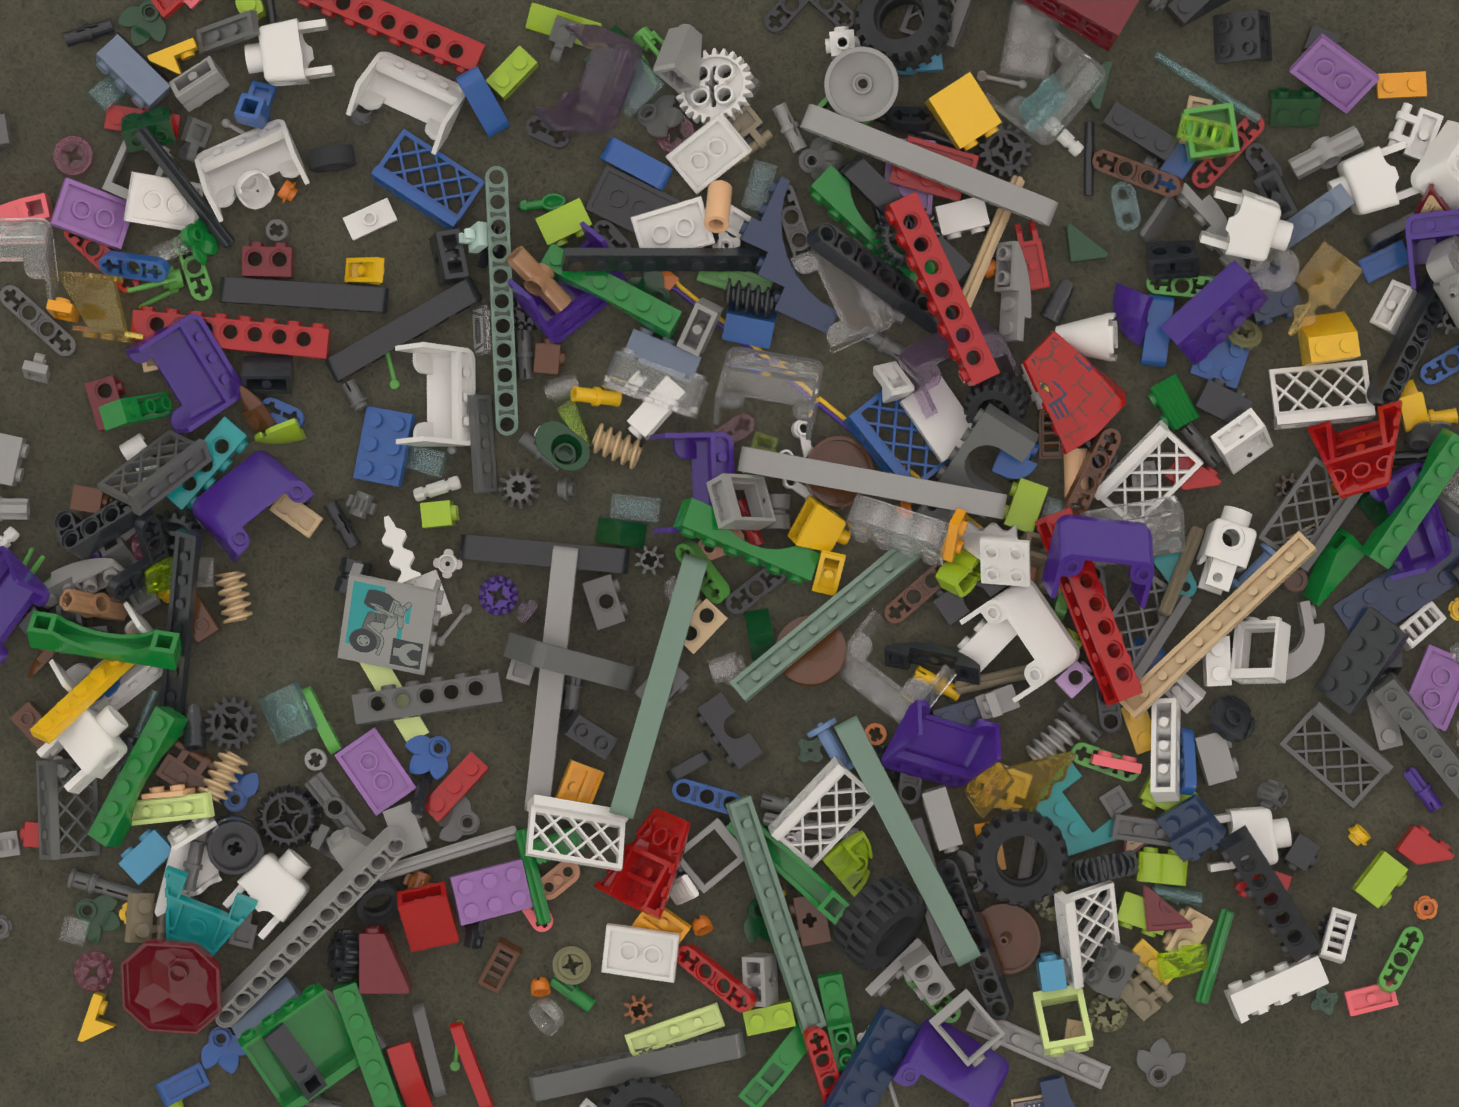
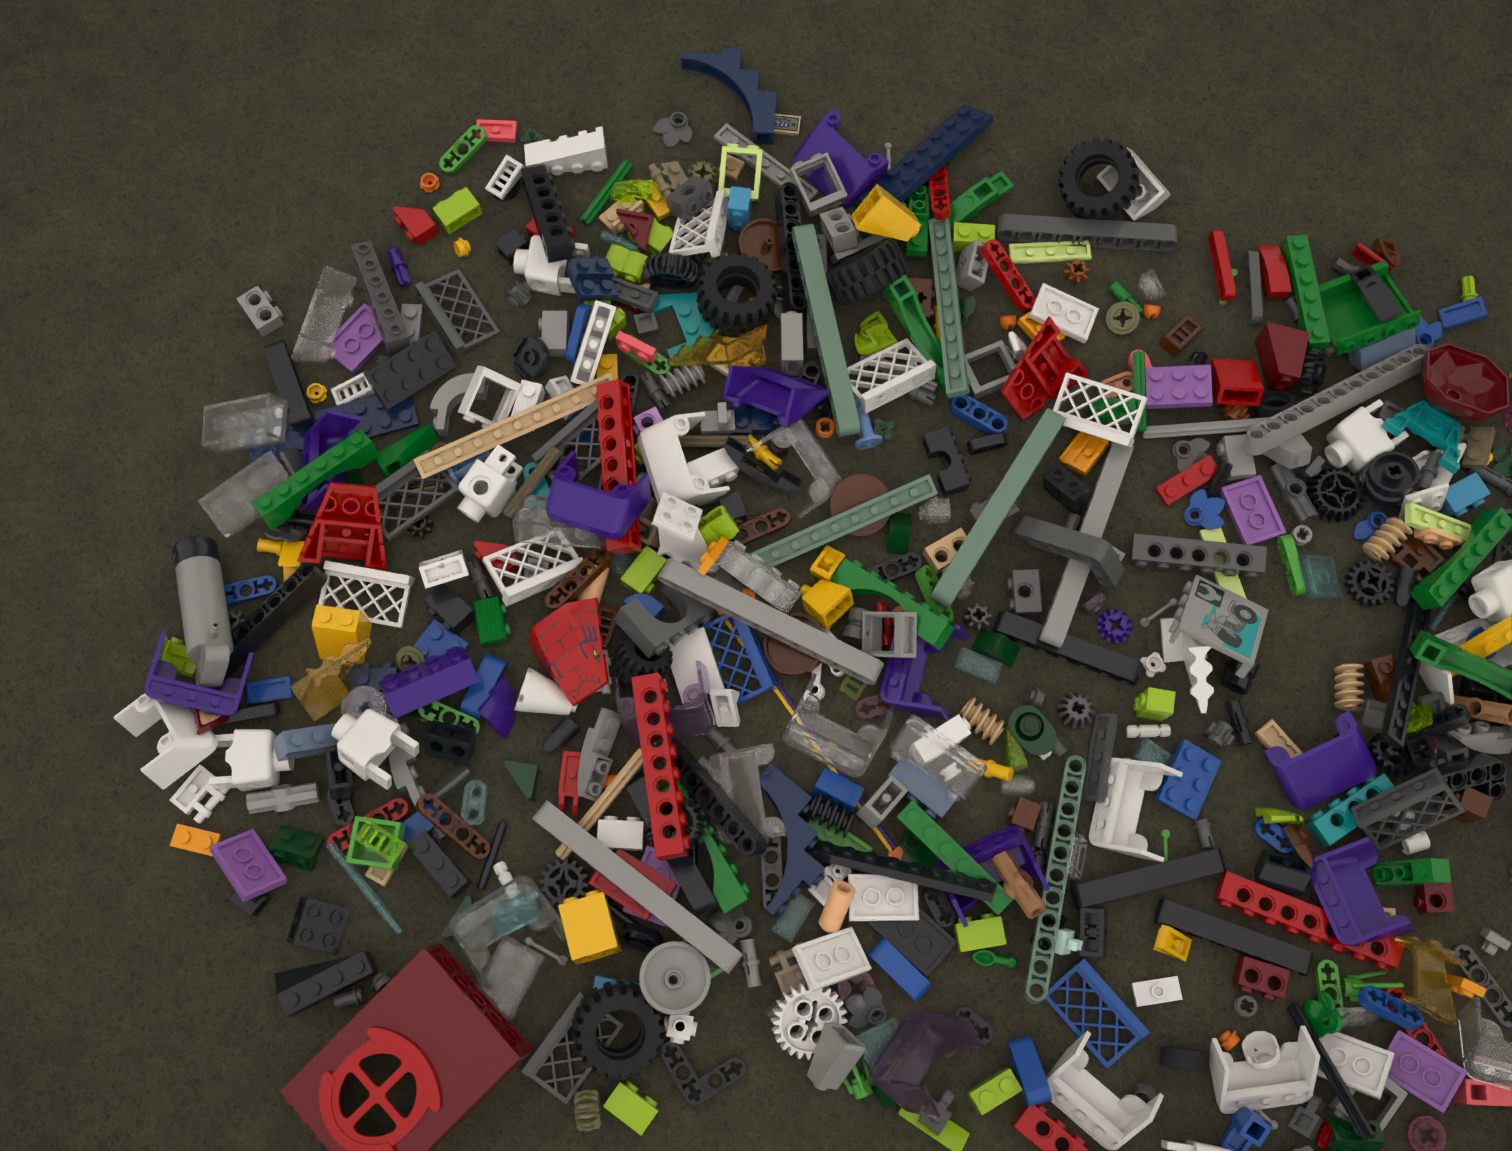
camera: 165 degrees left, 15 degrees down
(877, 1000) = (885, 216): none -> yellow slope
(1393, 307) = (277, 650): white slope -> none

